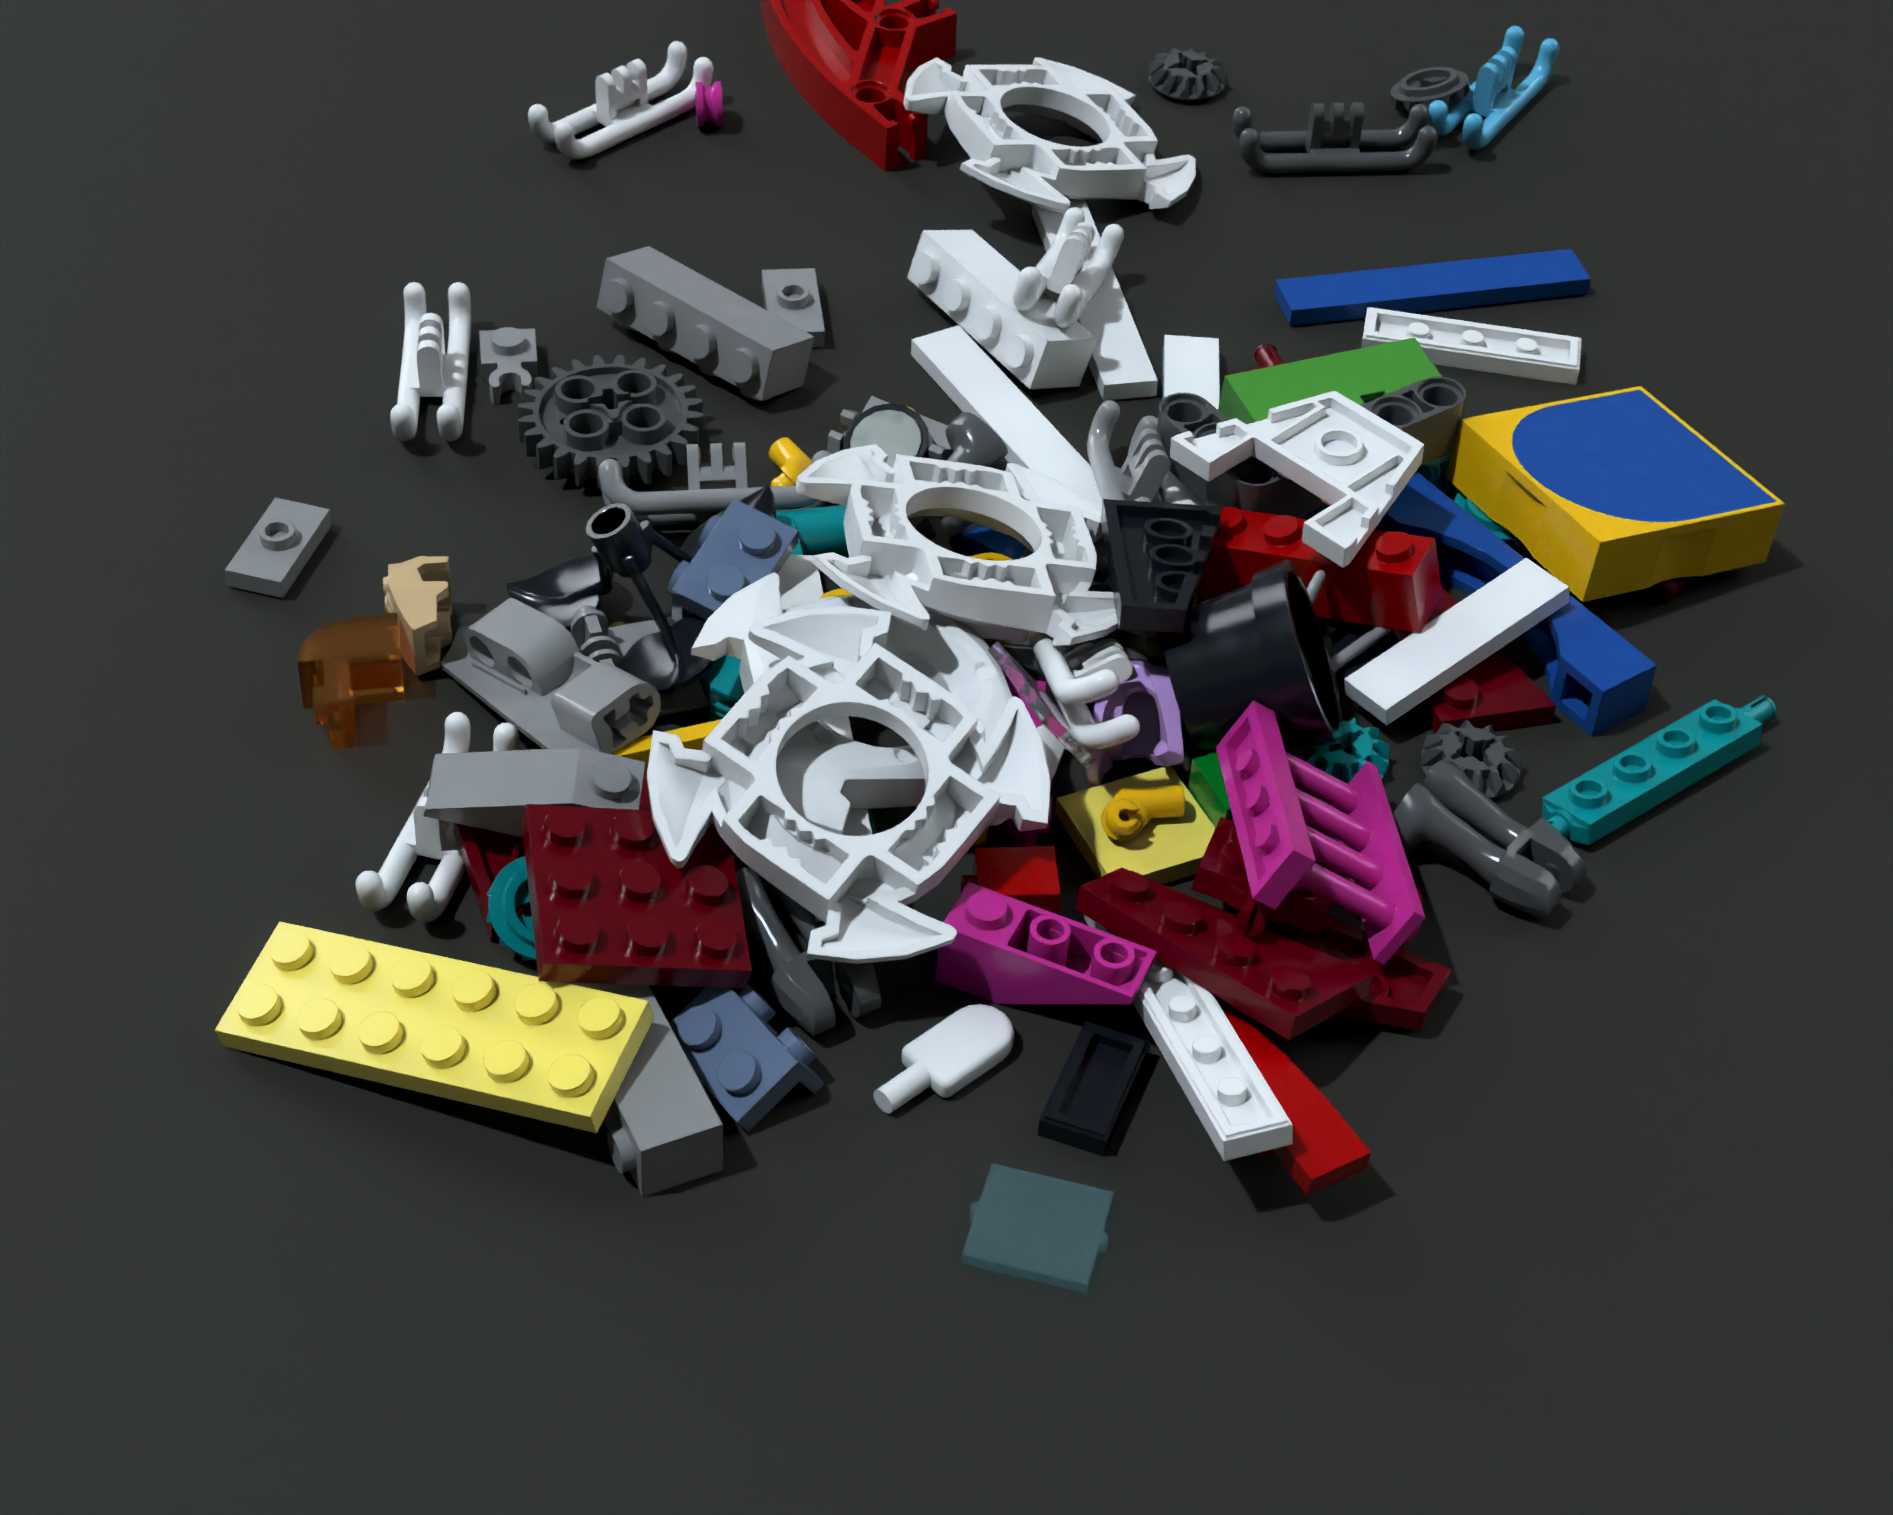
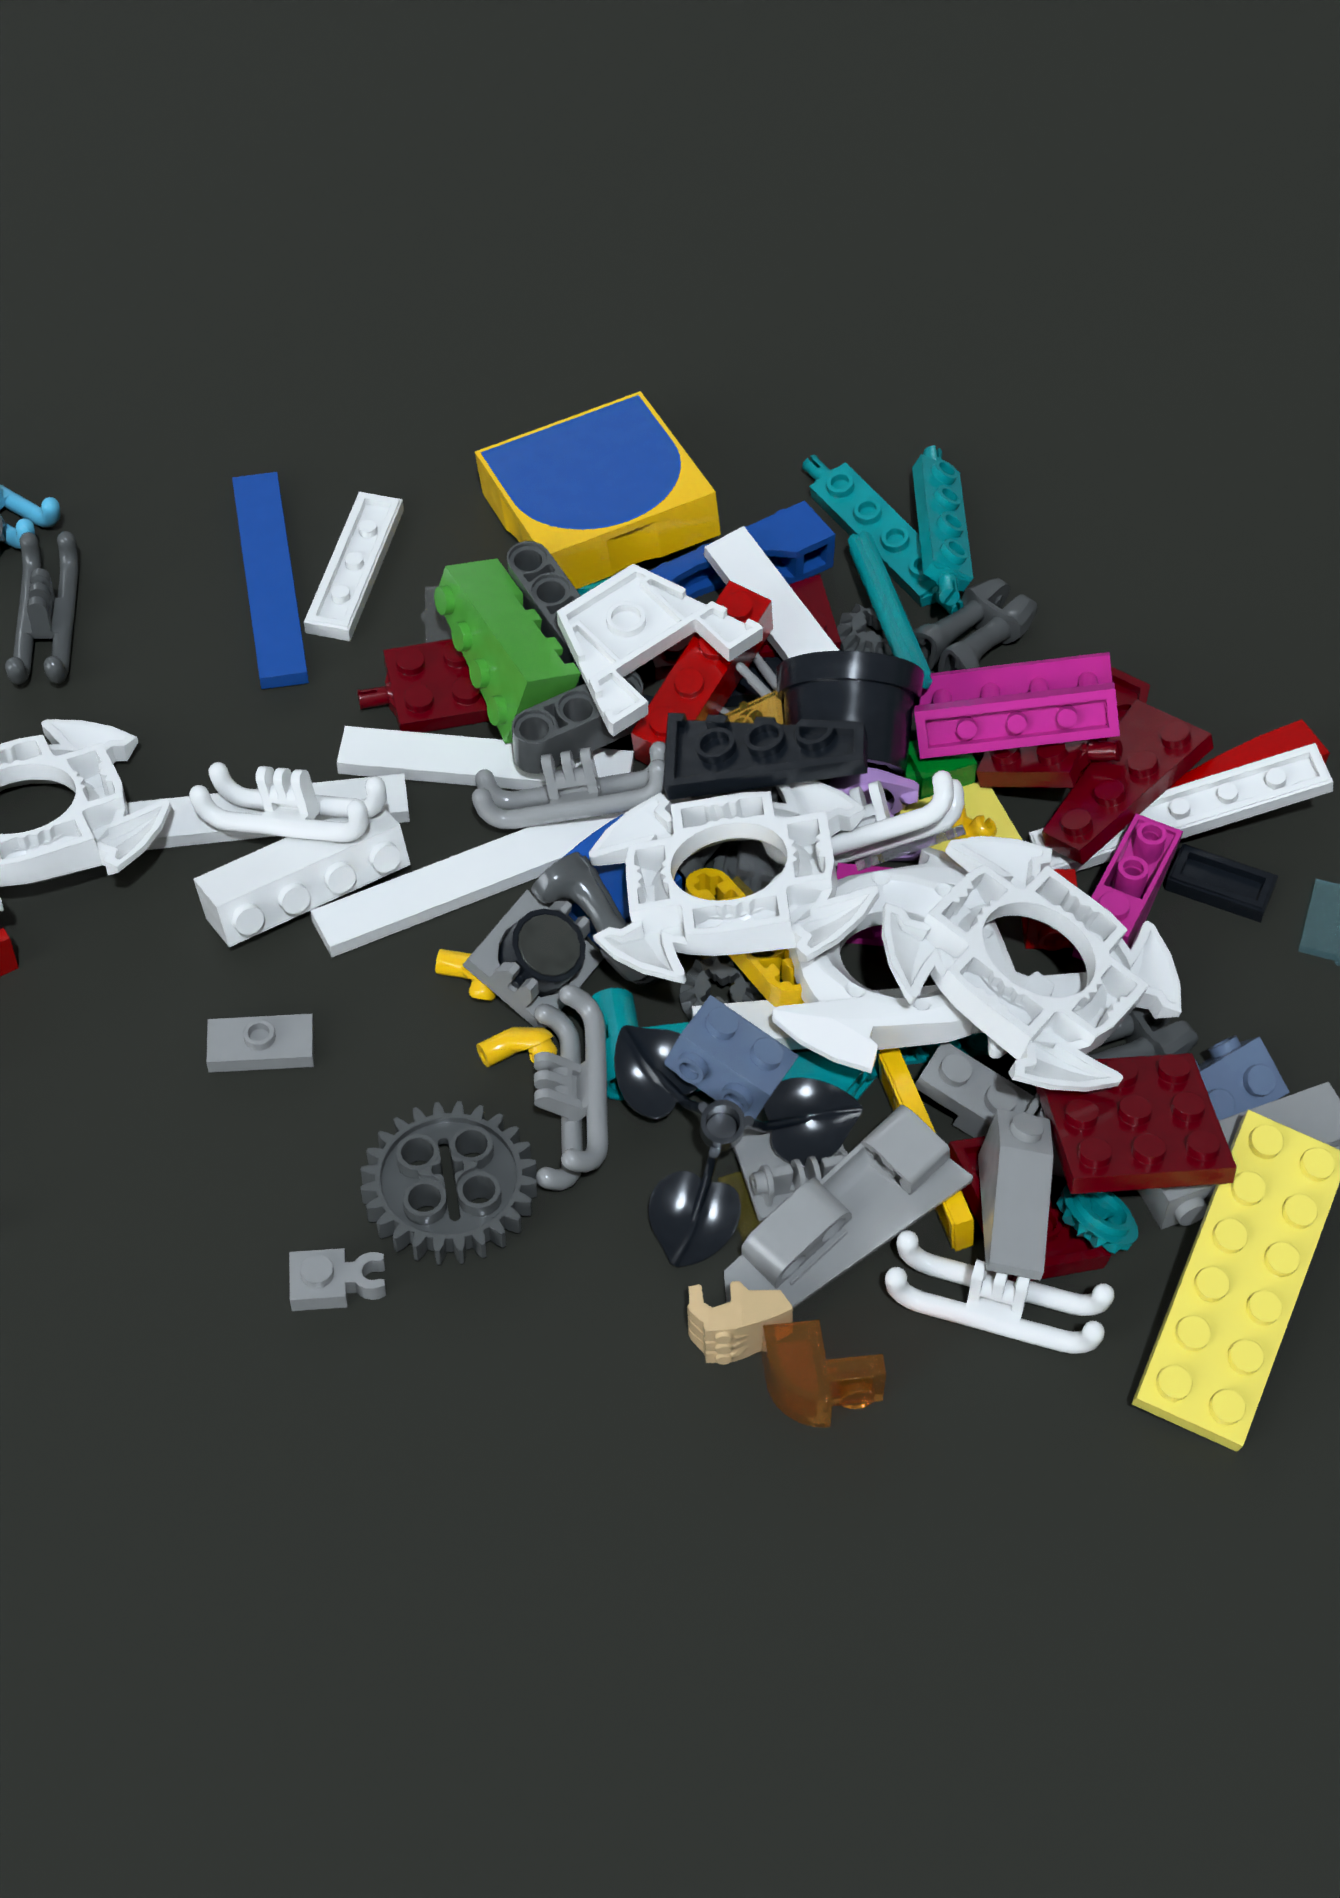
camera: 85 degrees left, 10 degrees up
(278, 547) = (617, 1459): light grey plate -> none
(426, 367) = (353, 1340): white piece -> none
(705, 323) = (308, 1102): light grey brick -> none
(949, 1055) = (1205, 965): white piece -> none
(1481, 741) = (886, 602): none -> teal axle
(1668, 804) = (942, 524): none -> teal plate

